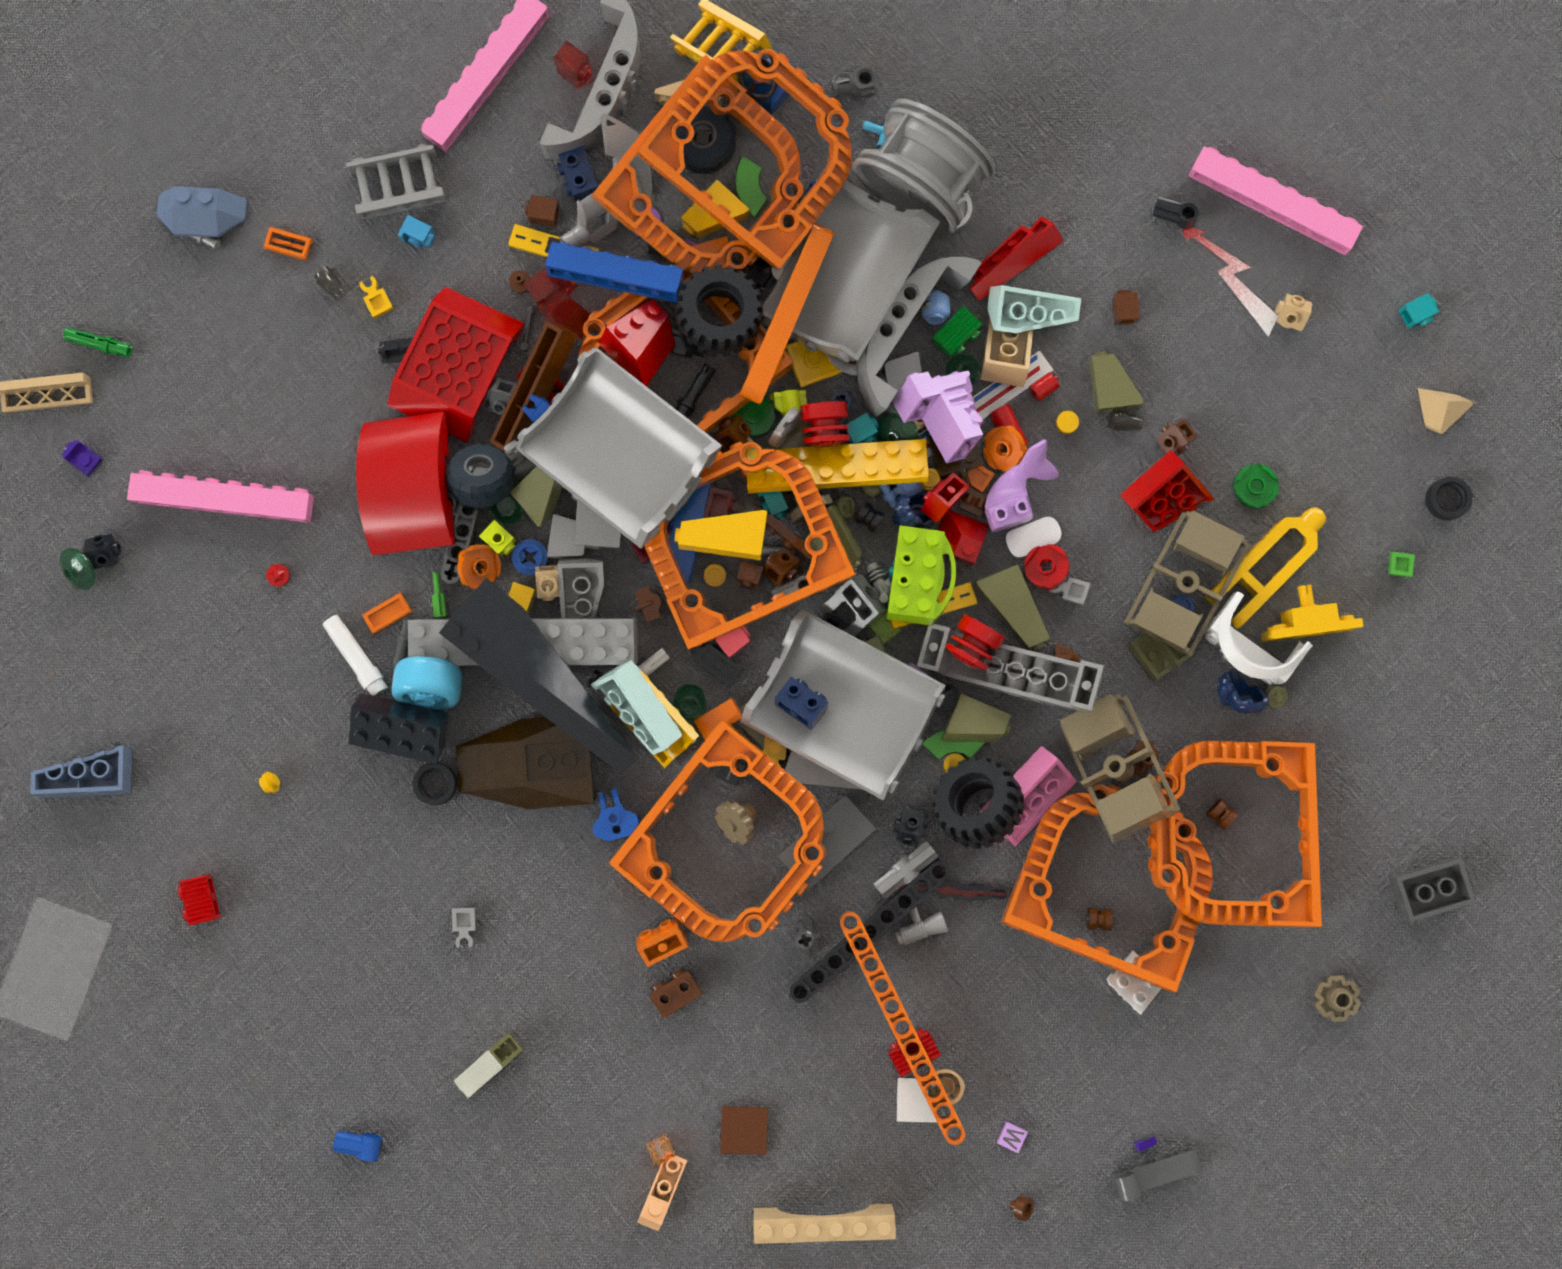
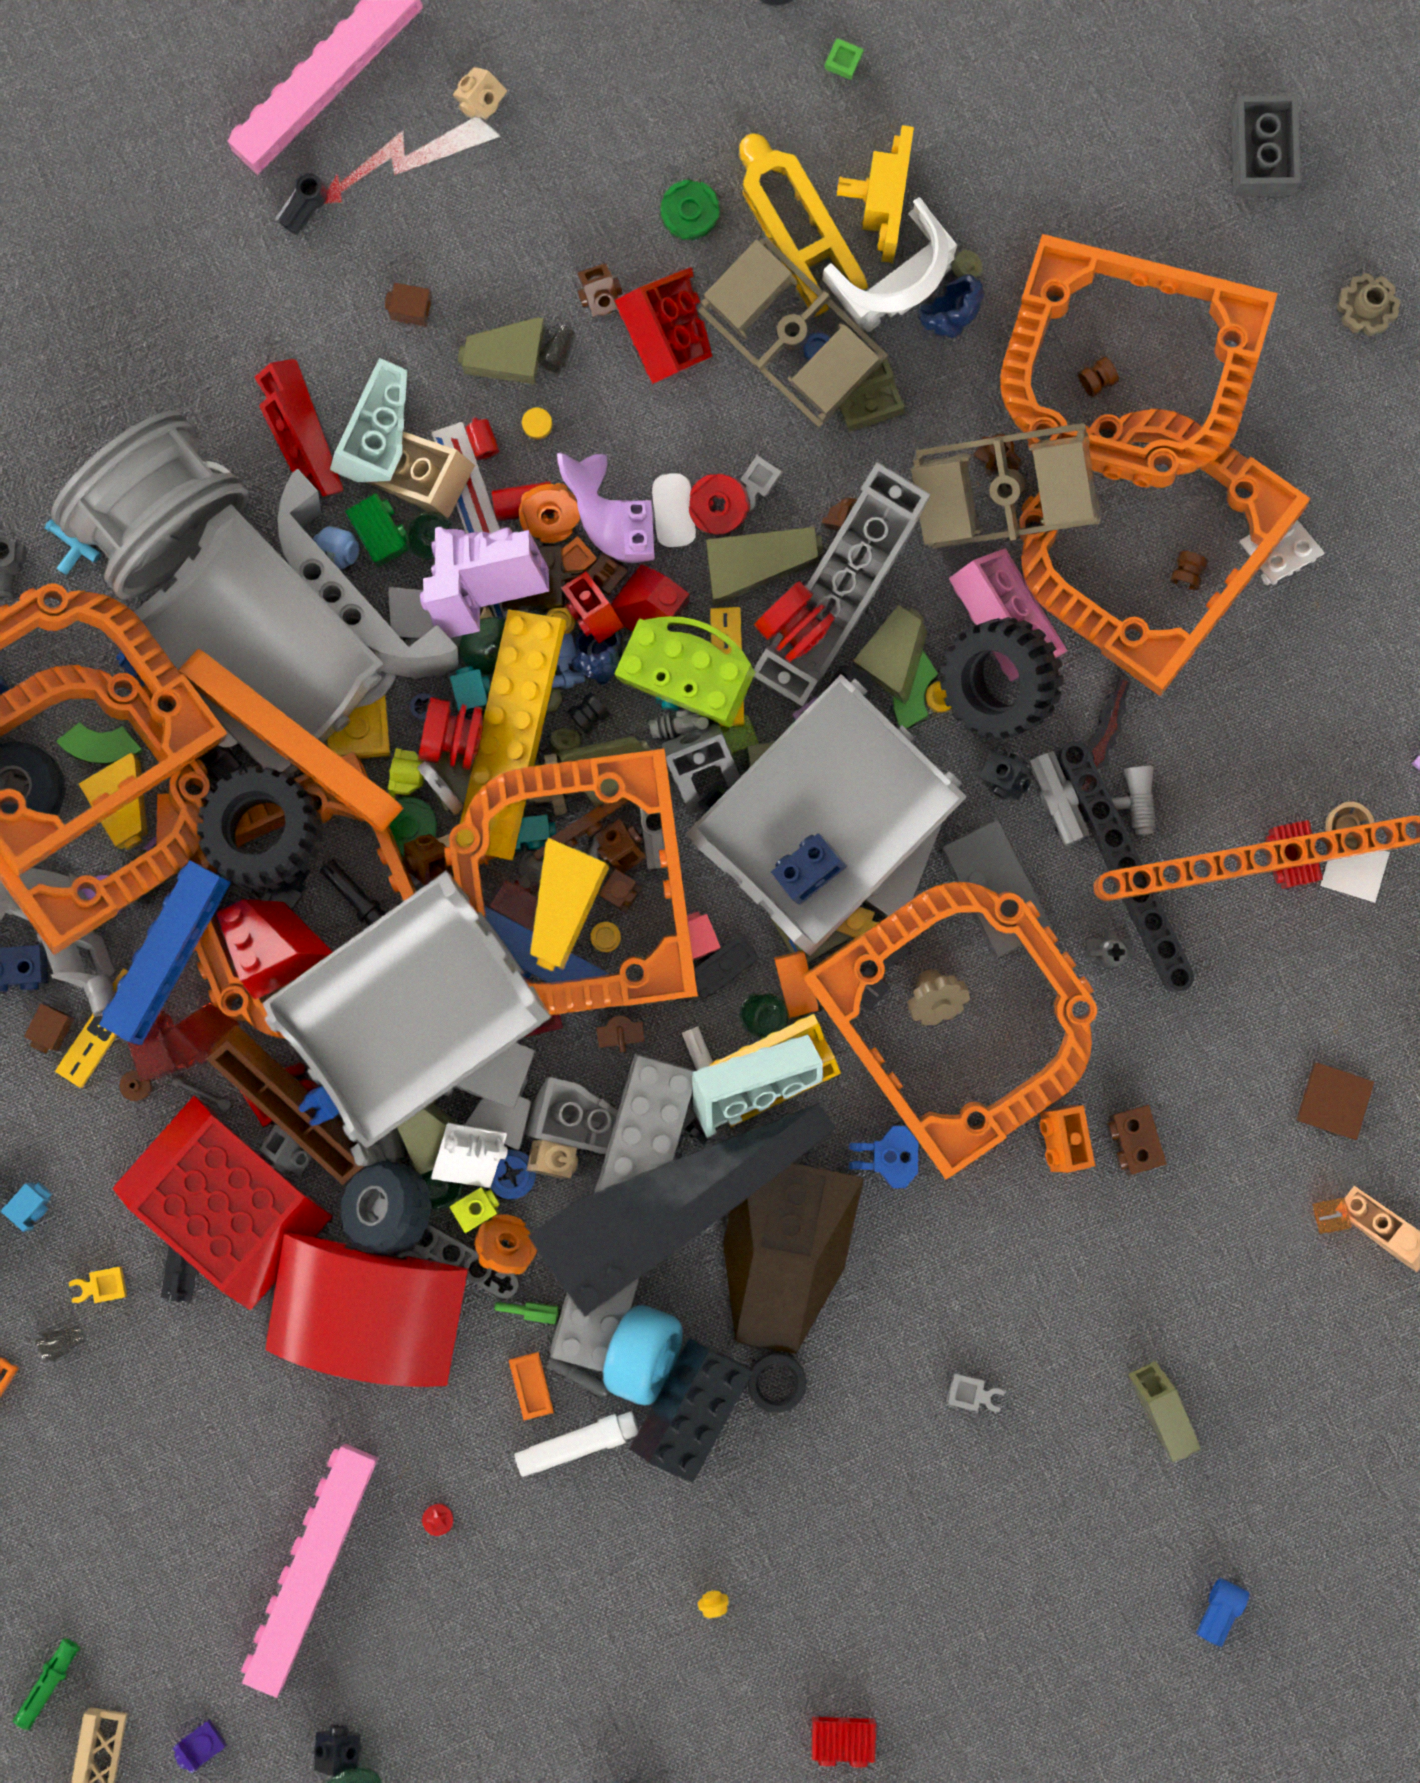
camera: 75 degrees left, 0 degrees up
(523, 595) = (560, 1197): yellow brick -> none
(533, 523) = (469, 1155): none -> white hinge

